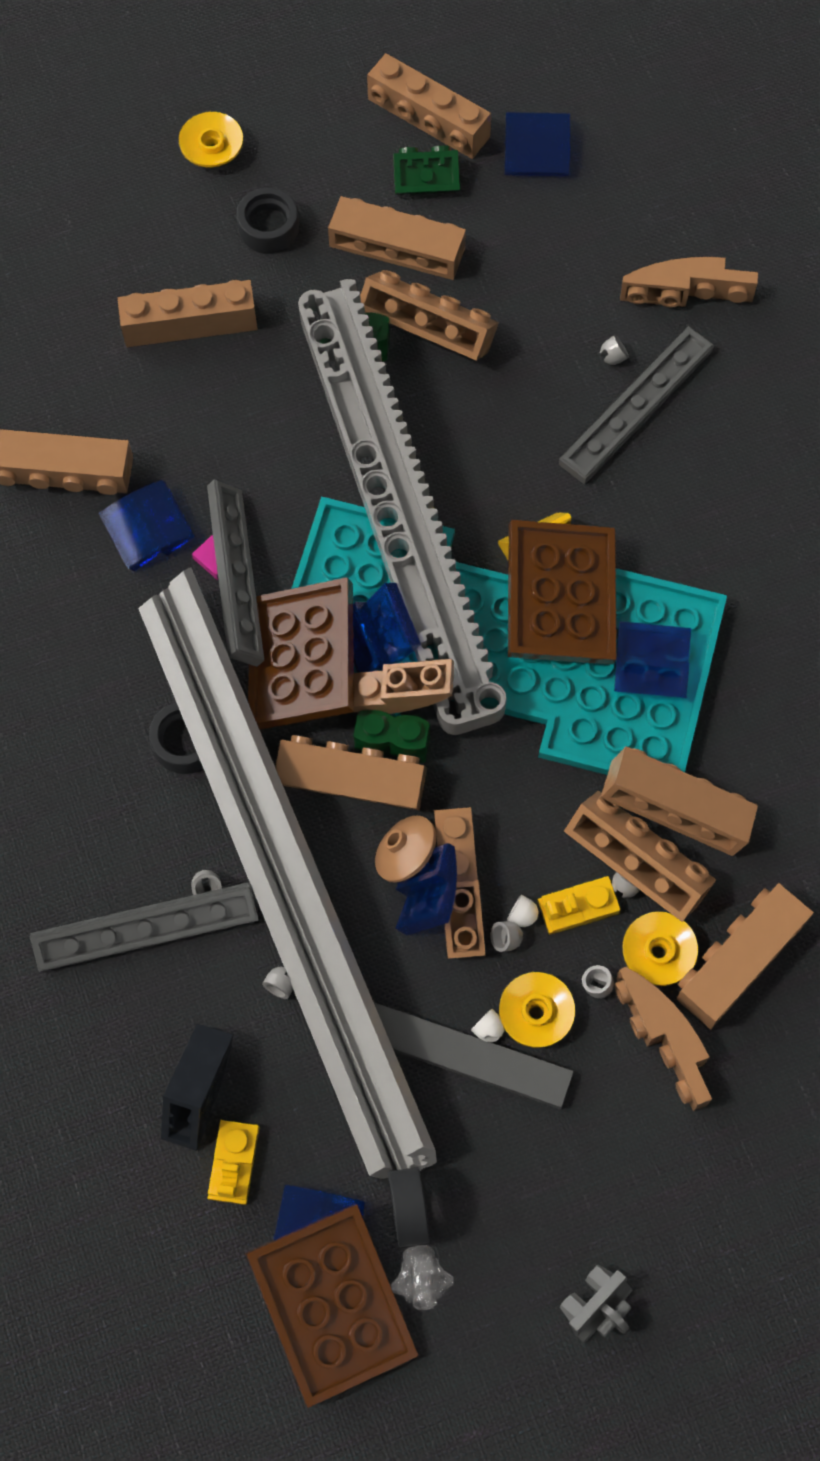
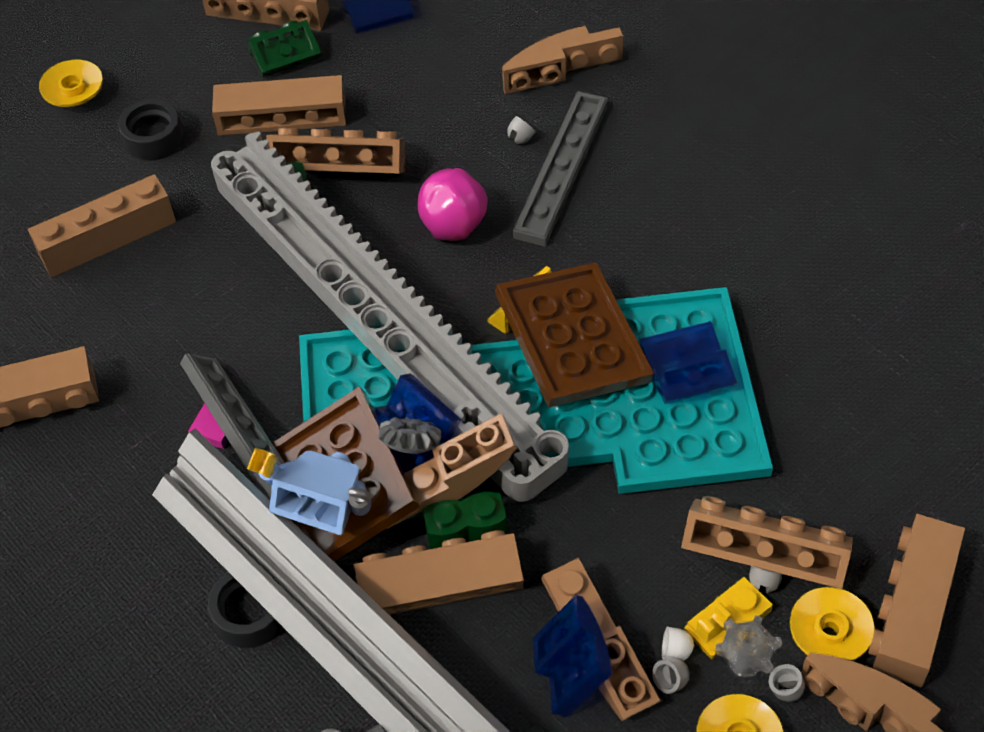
camera: 20 degrees left, 15 degrees down
(146, 524) = (130, 421): clear blue slope -> none
(268, 664) = (313, 488): none -> light blue torso
(369, 644) = (409, 435): none -> dark grey gear
(405, 849) = (529, 626): medium nougat dish -> none
(509, 414) = (452, 204): none -> dark pink piece
(575, 950) = (748, 647): none -> clear rock
(679, 801) = (781, 475): medium nougat brick -> none

